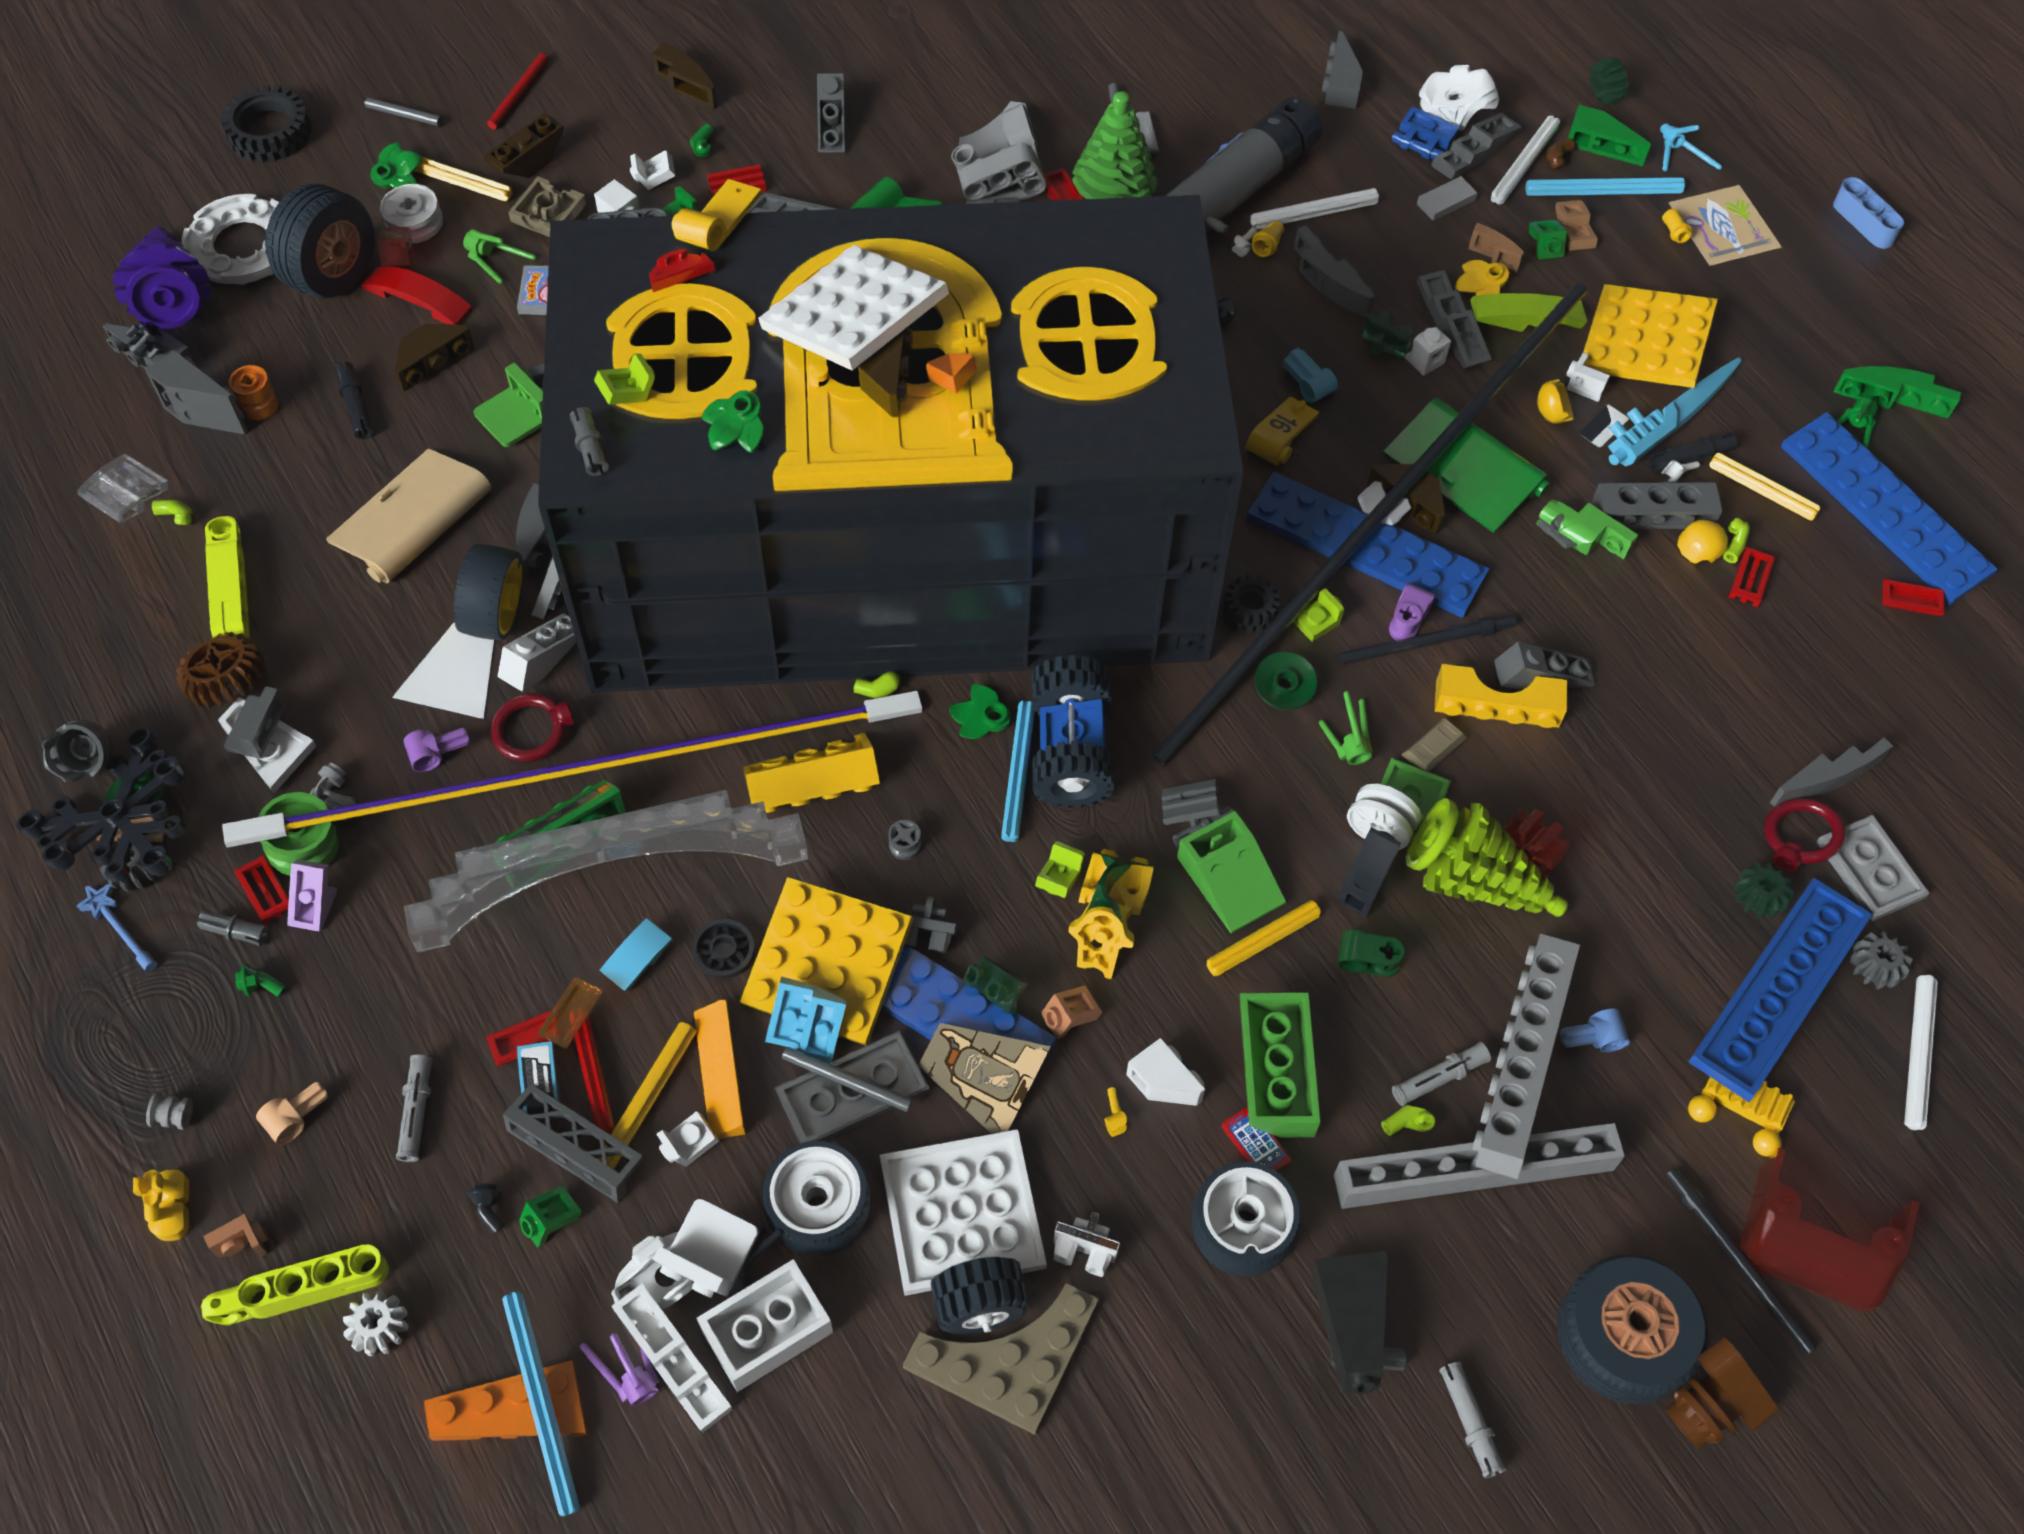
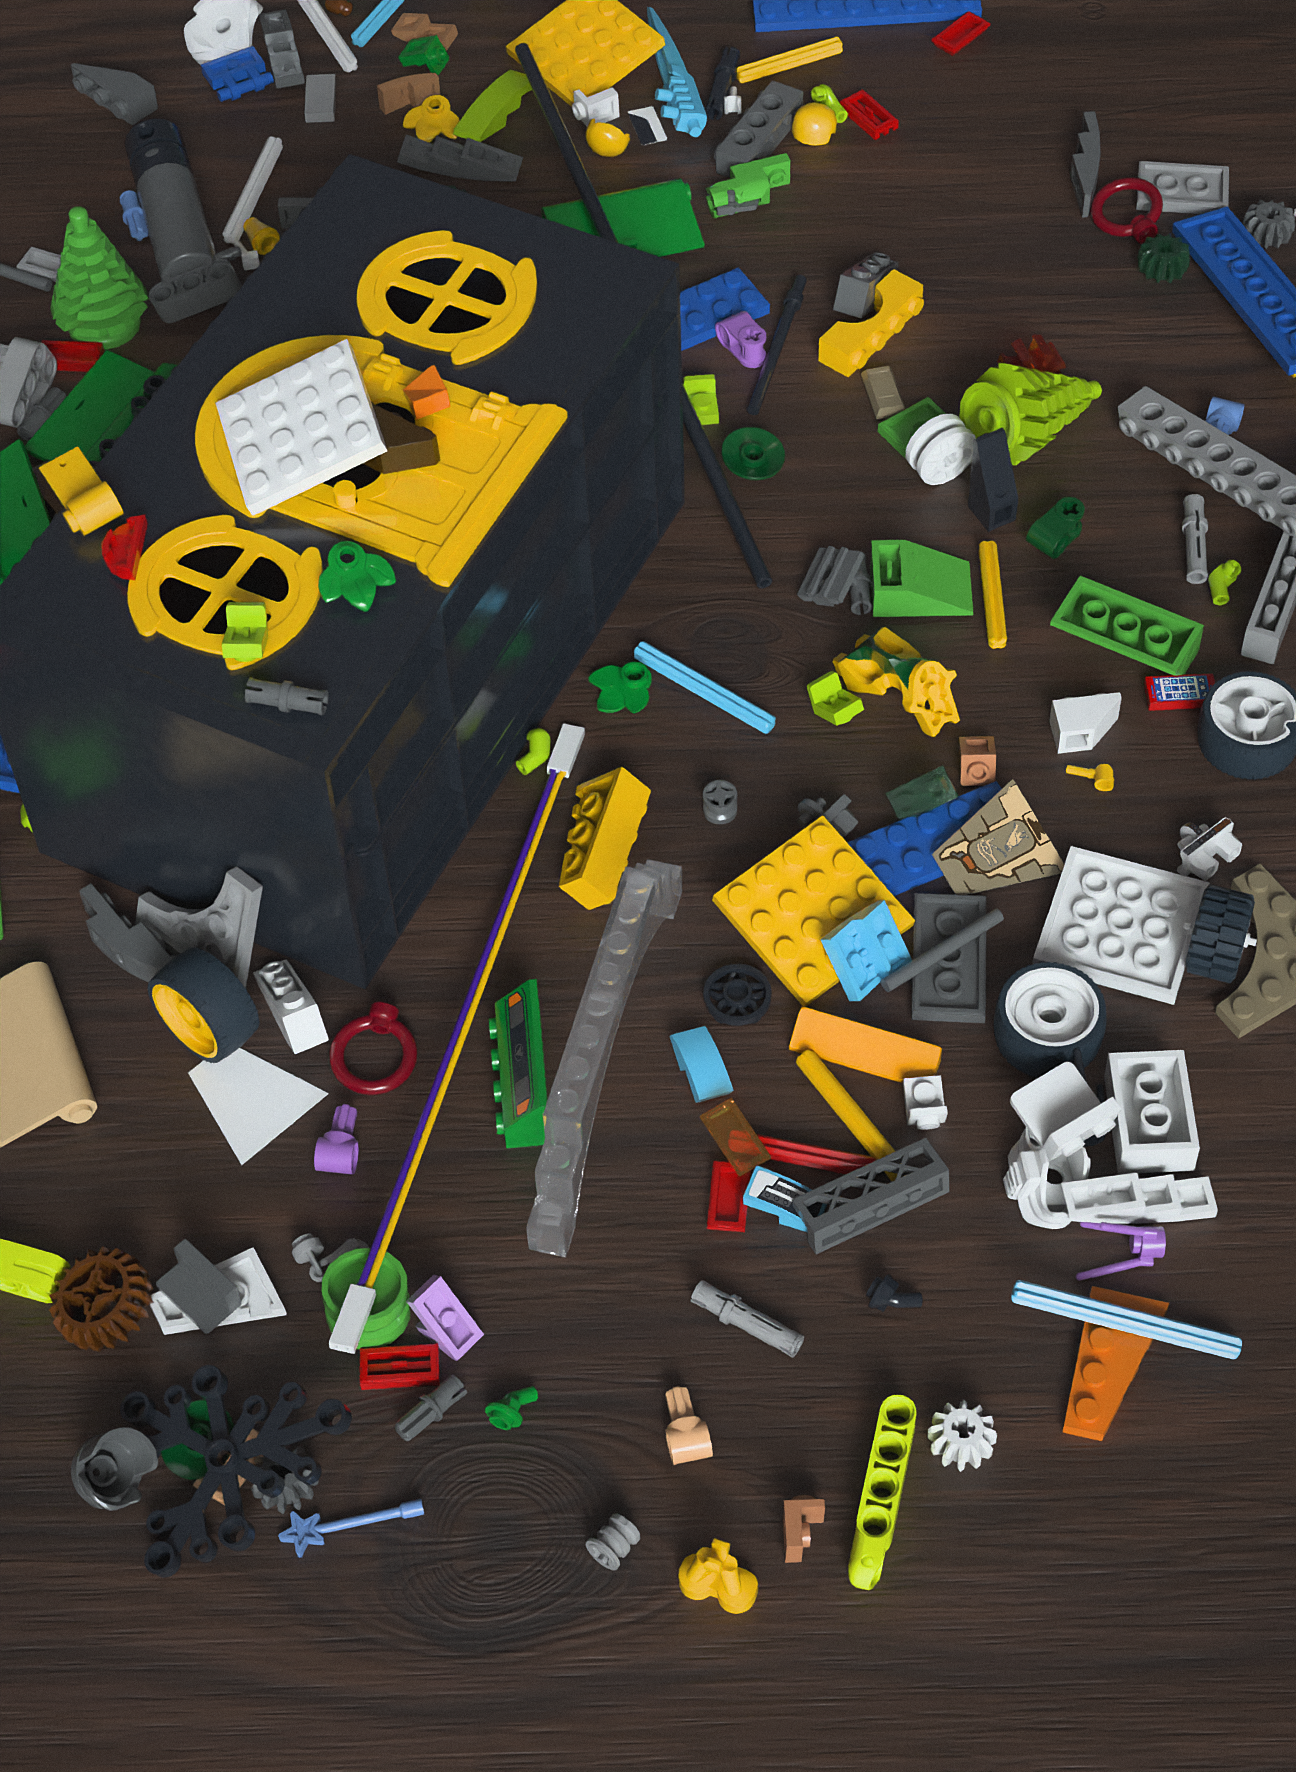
camera: 55 degrees left, 5 degrees down
(547, 1214) = (934, 1248): green bracket -> none
(1073, 754) = (705, 618): black plate -> none
(1356, 745) = (851, 439): bright green plant -> none
(1429, 345) = (482, 182): white brick -> none

